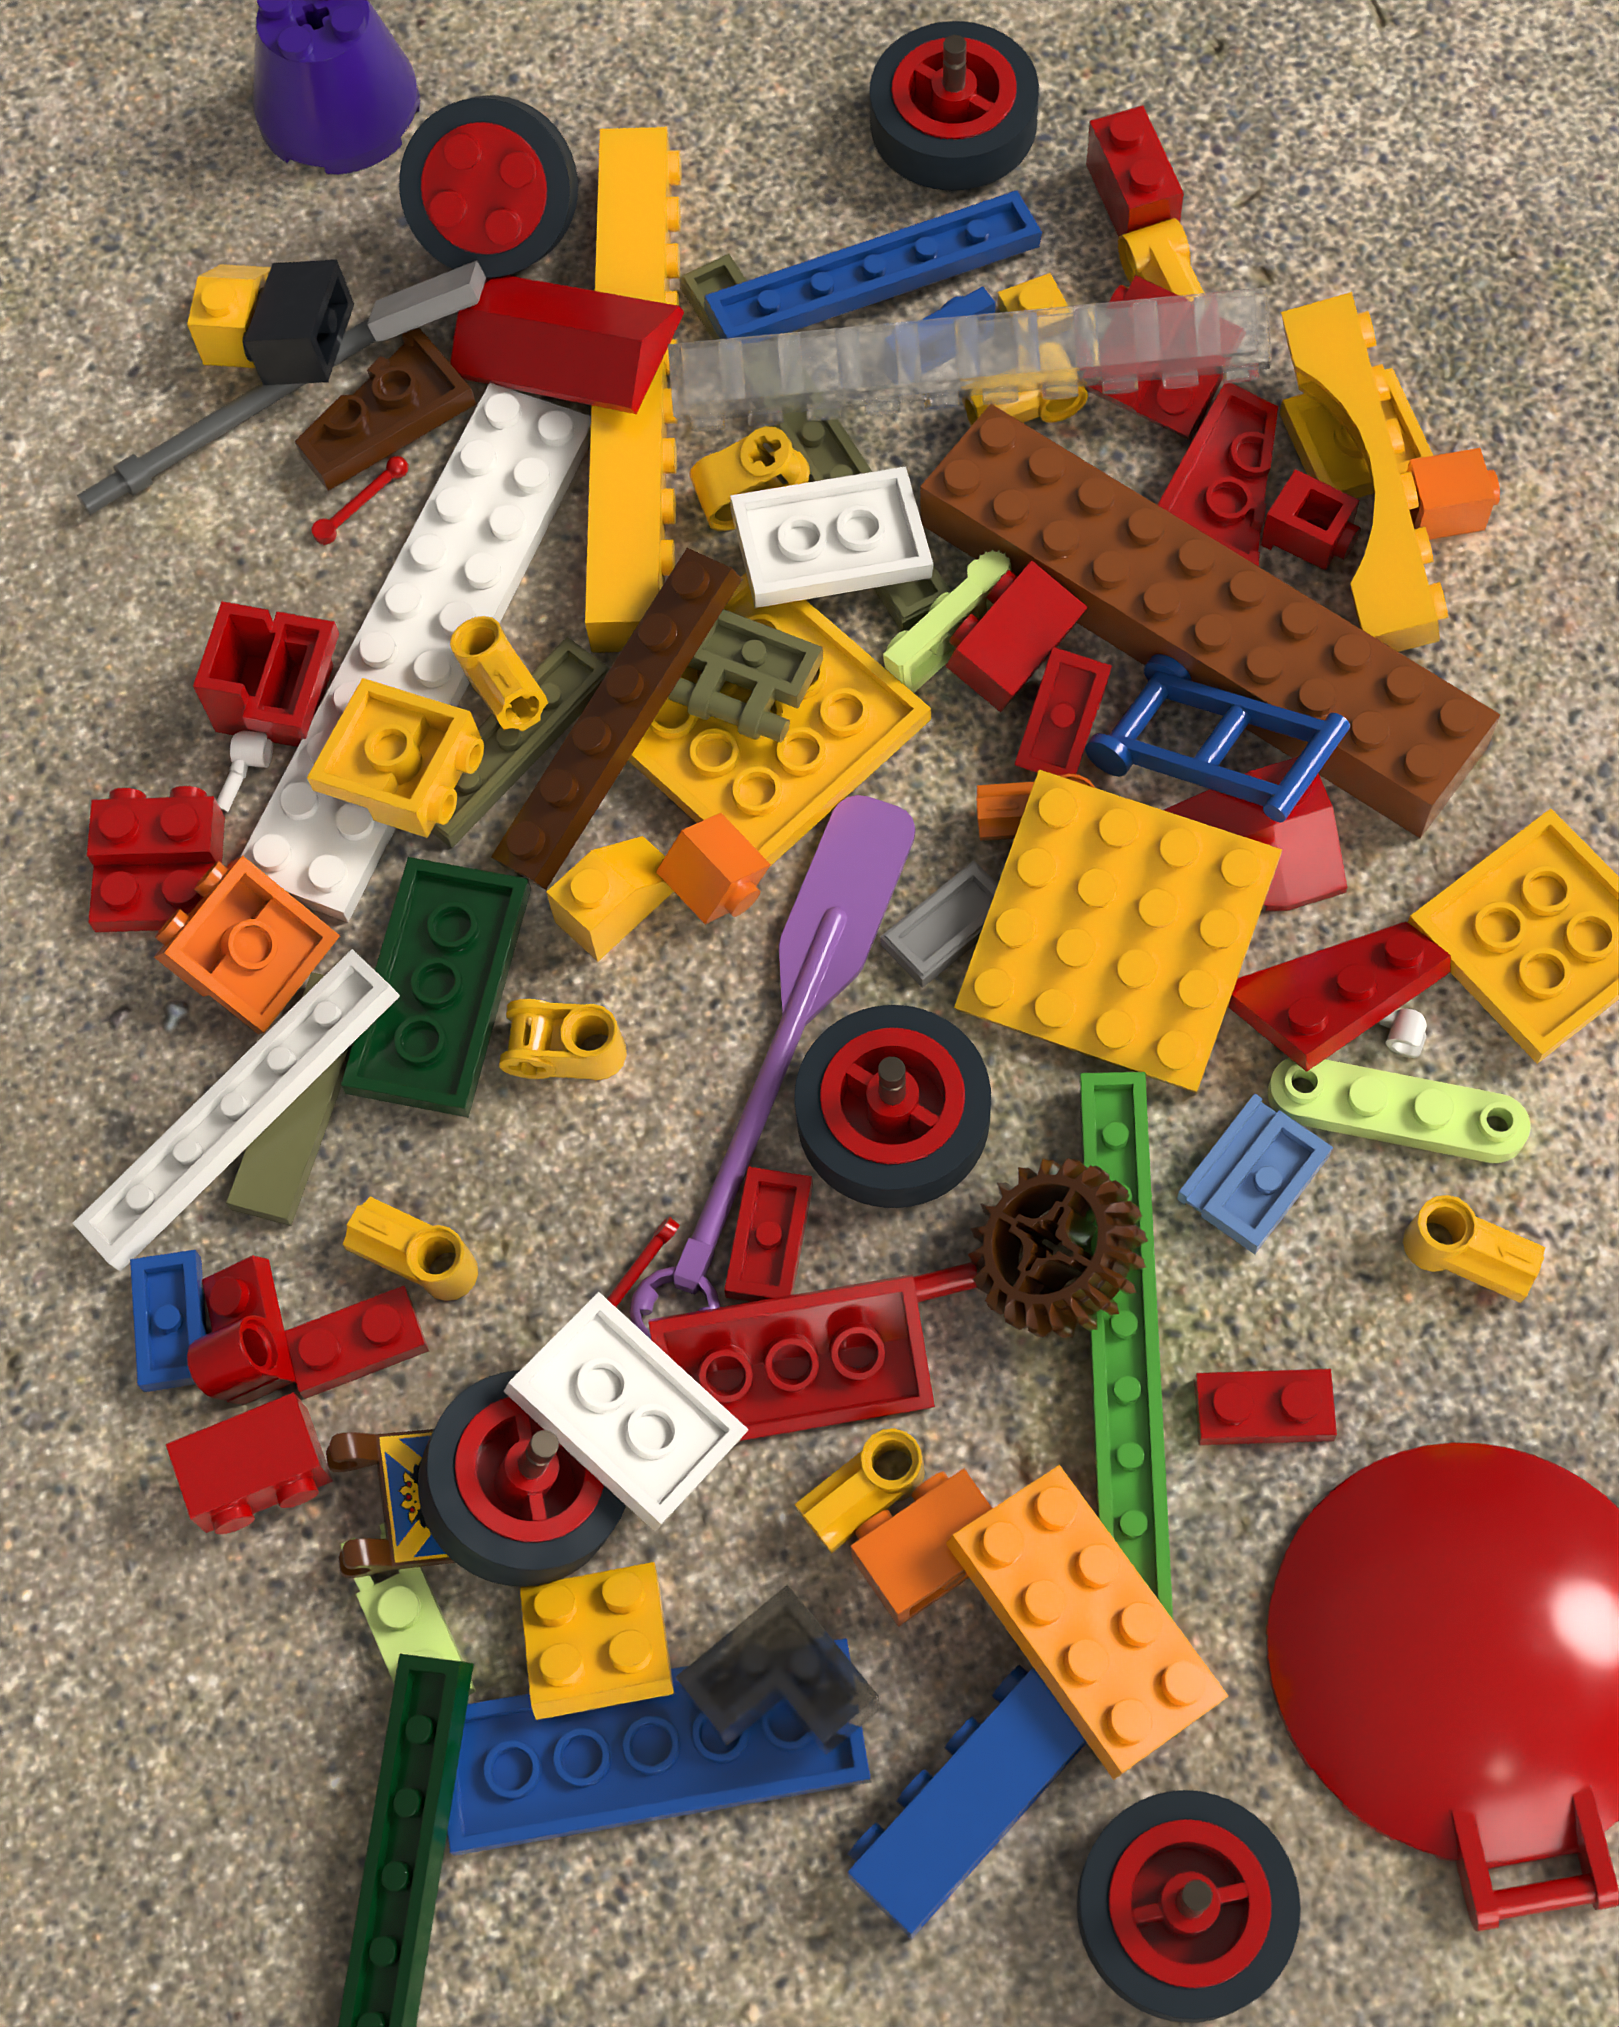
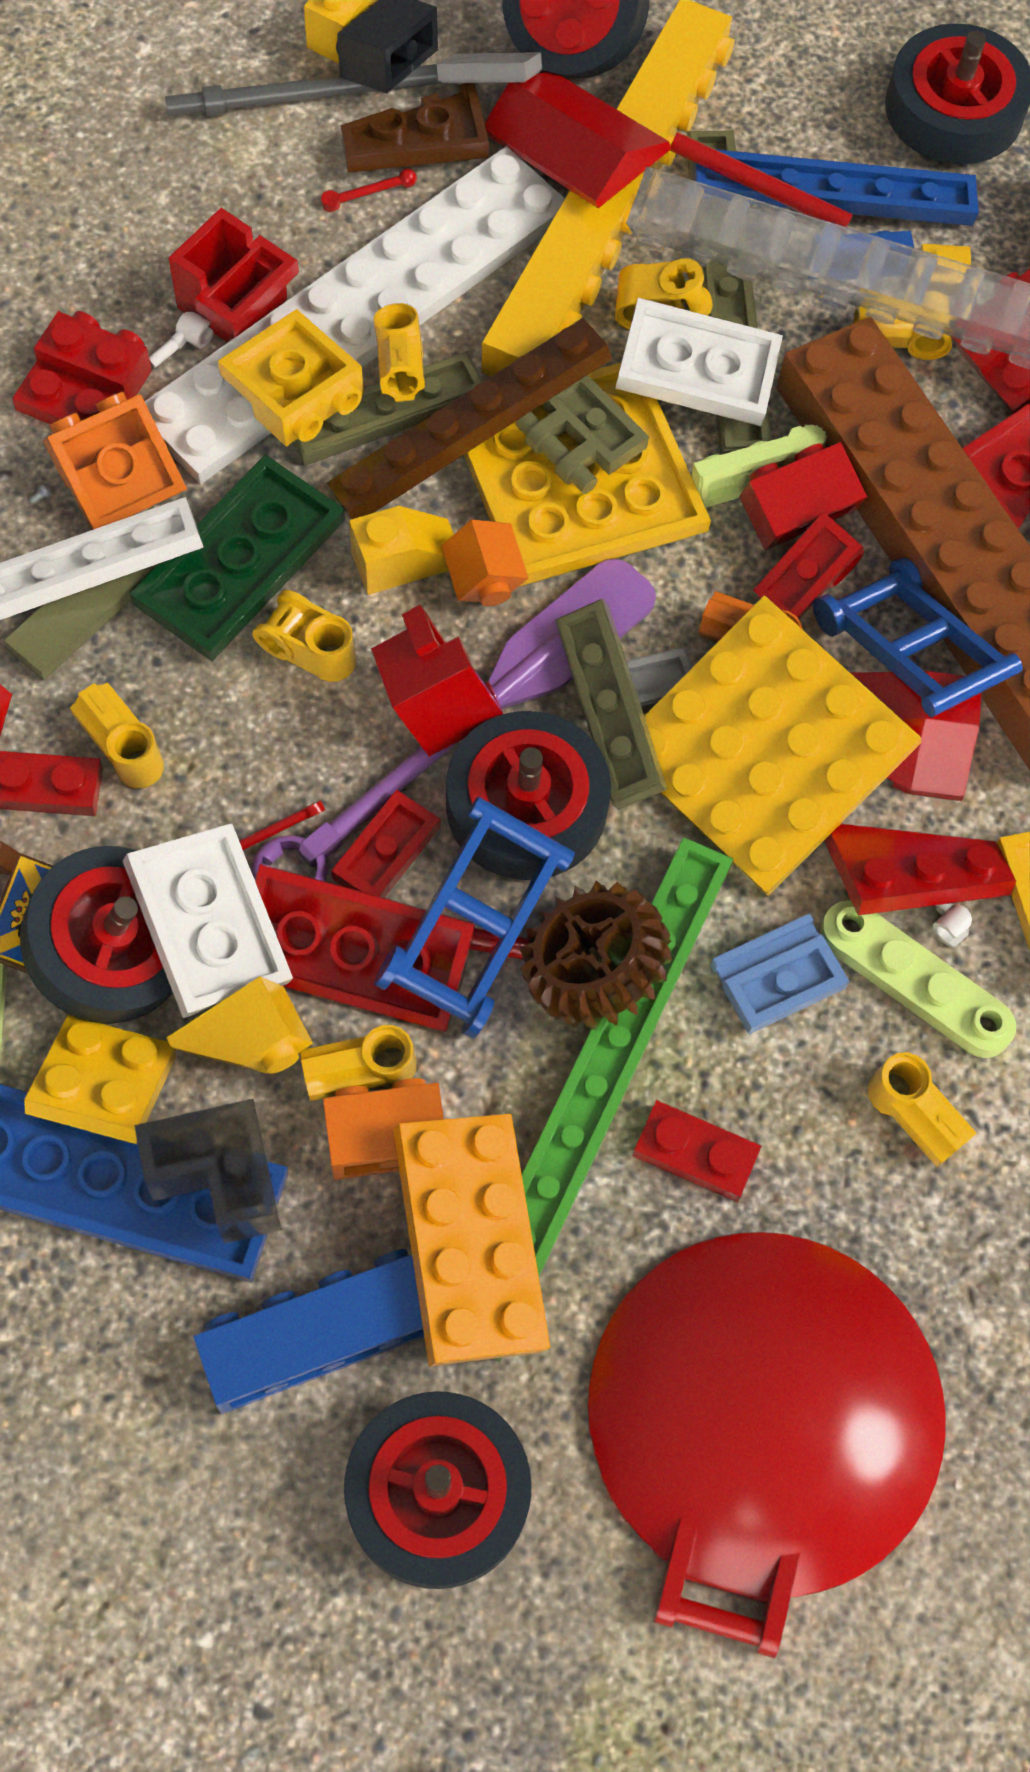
camera: 15 degrees right, 0 degrees up
(731, 1511) = (248, 1030): none -> yellow slope
(734, 1032) = (433, 684): none -> red plate
(796, 304) = (758, 180): none -> red bar
(854, 1358) = (477, 1006): none -> blue piece
(929, 961) = (611, 703): none -> olive tile

